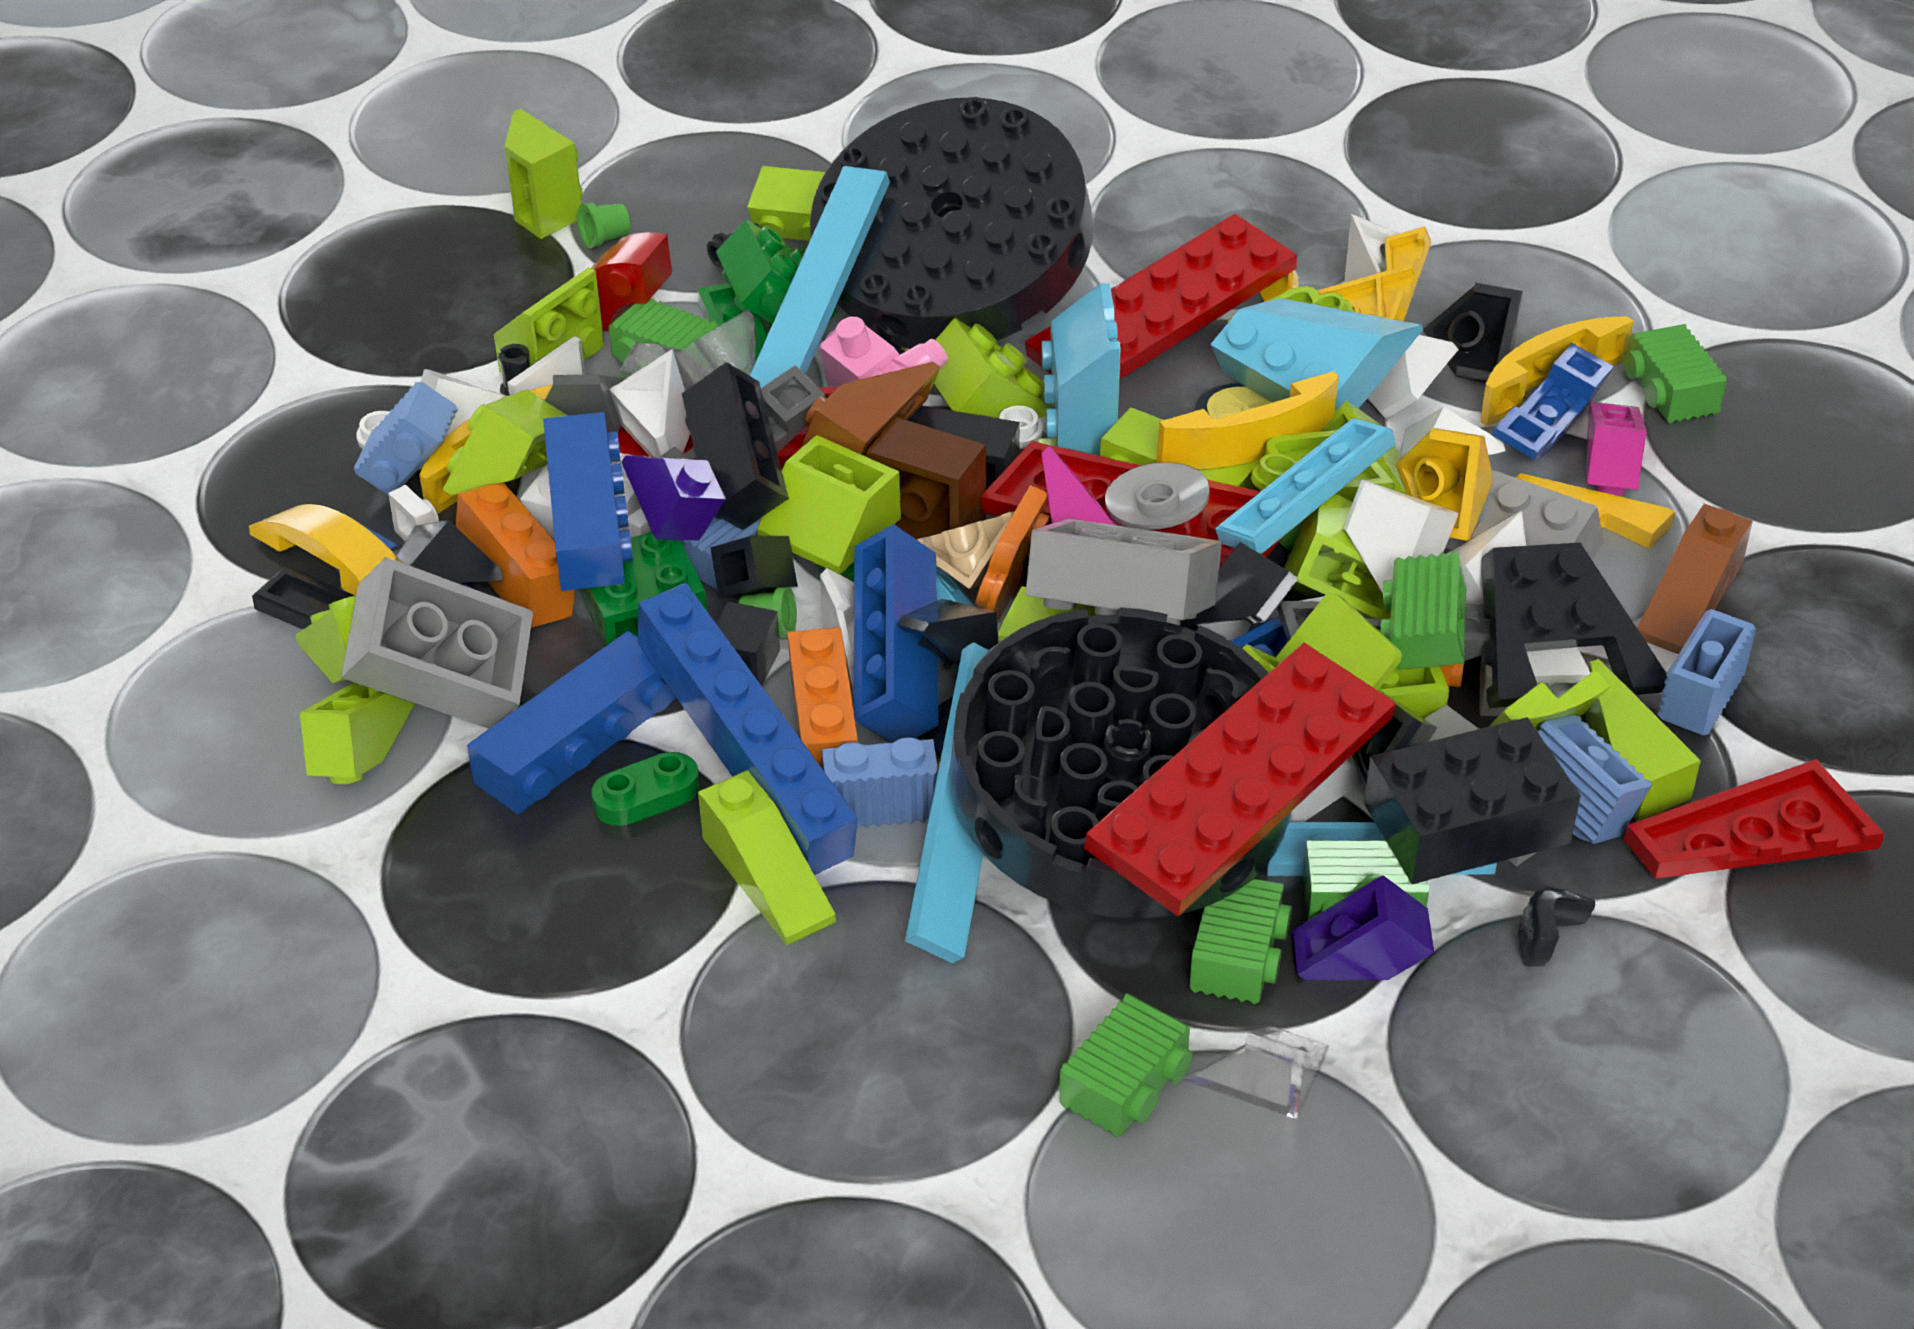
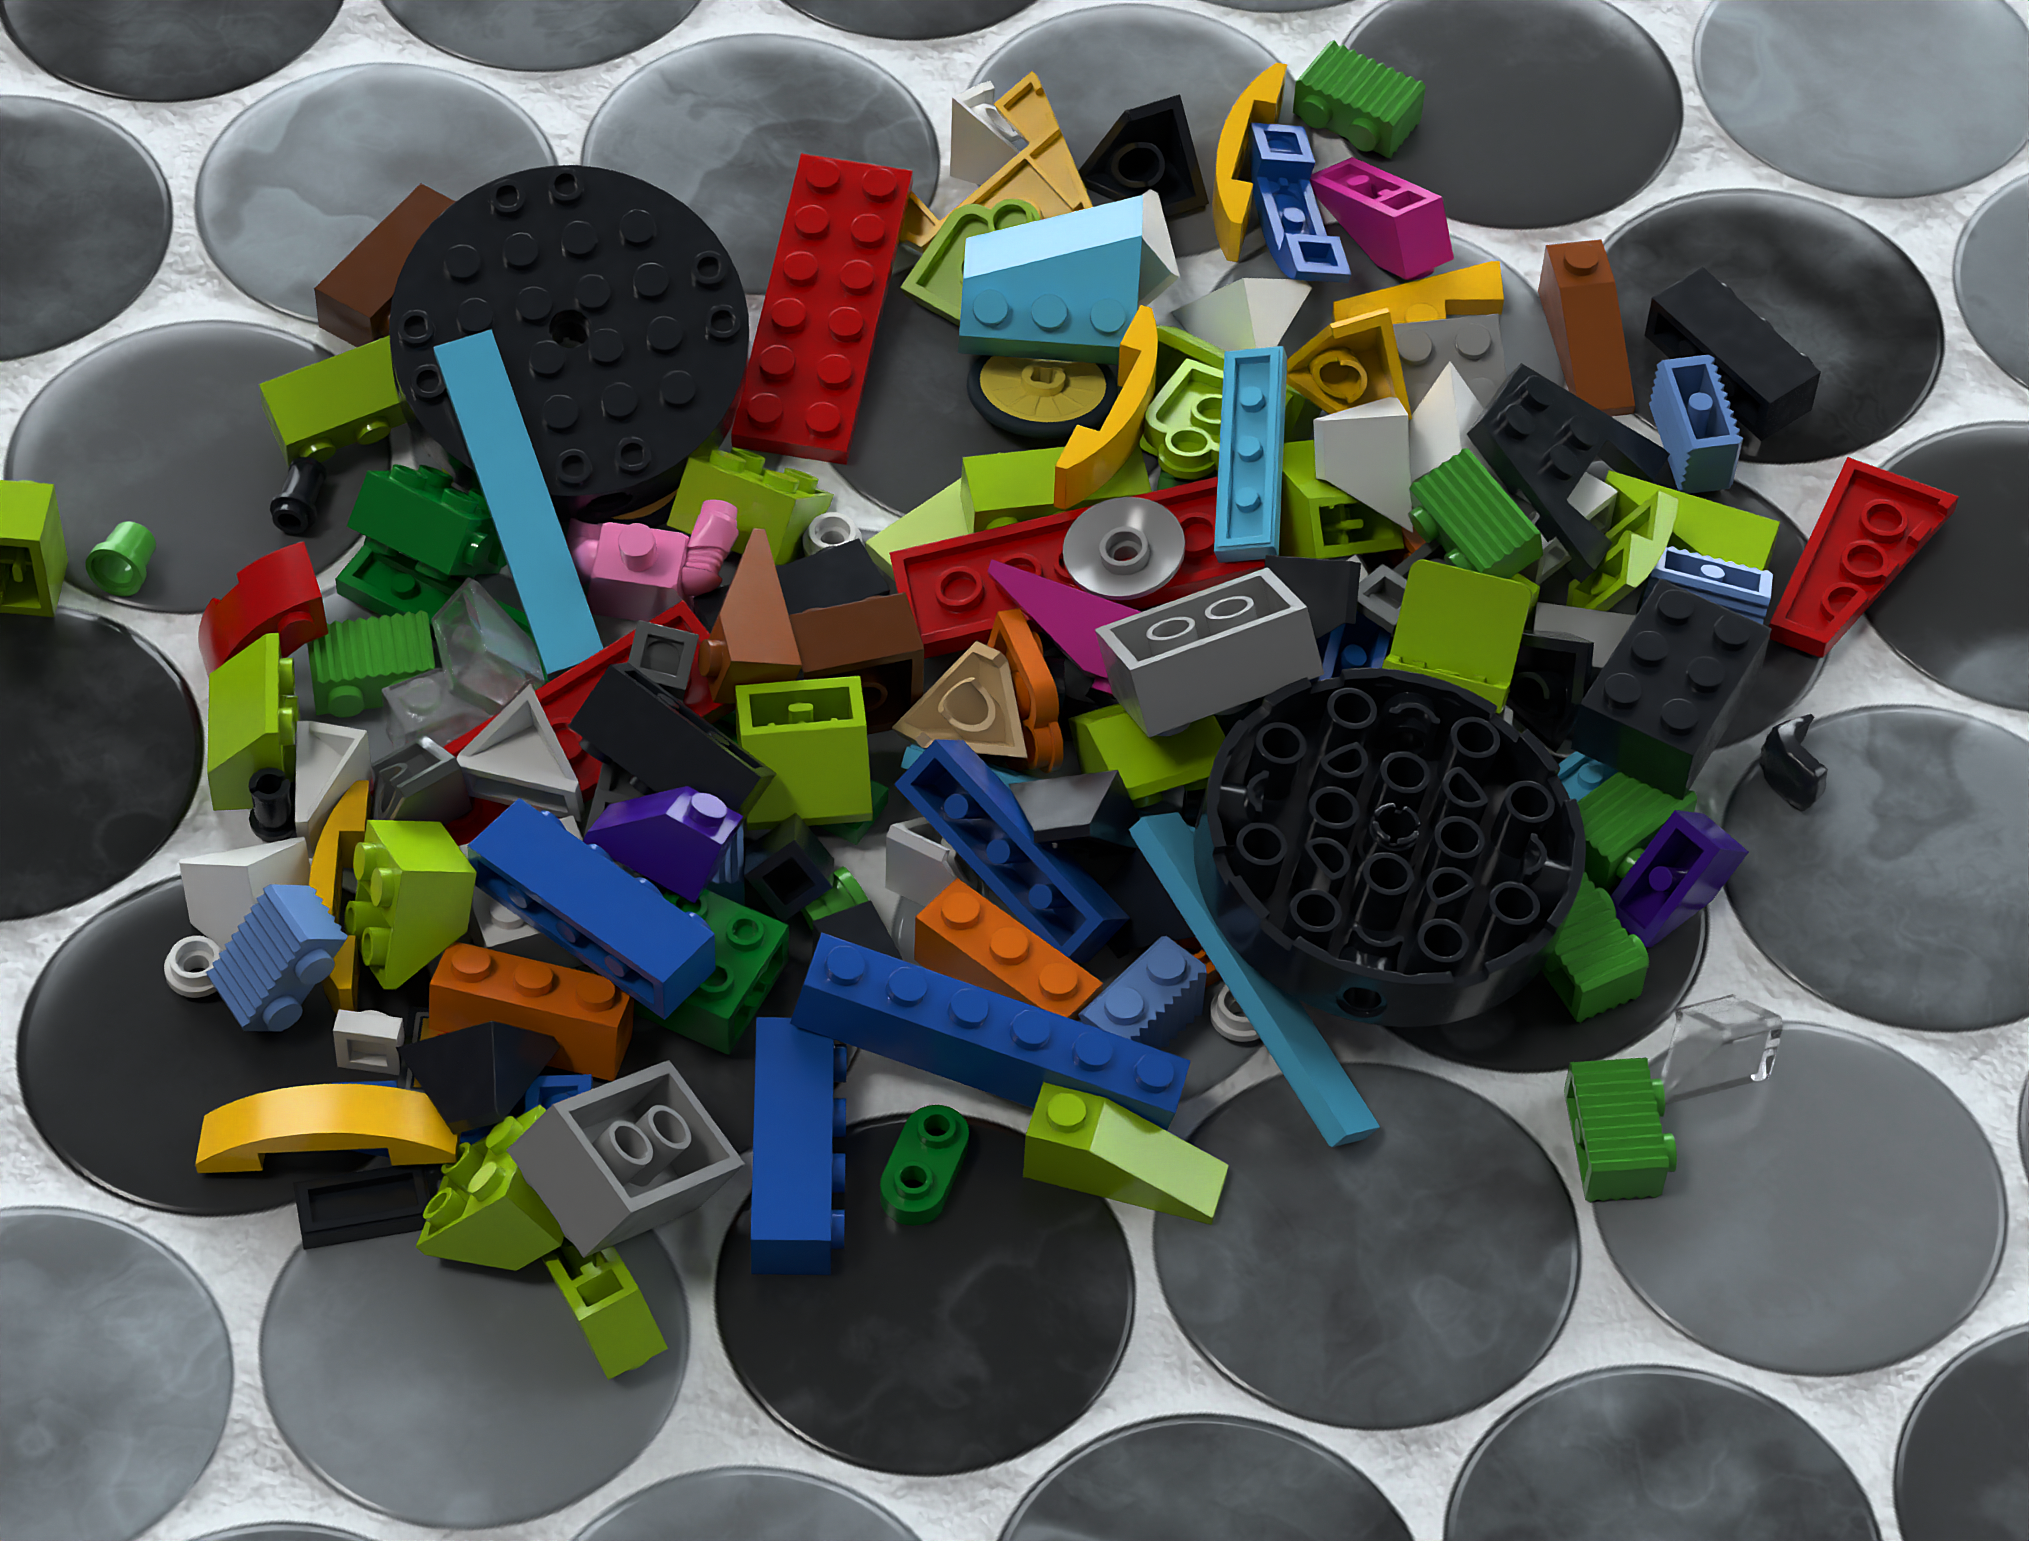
camera: 45 degrees left, 10 degrees up
(1084, 372) = (885, 441): medium azure wedge -> none
(1239, 778) = (1525, 799): red plate -> none
(1798, 652) = (1759, 369): none -> black brick

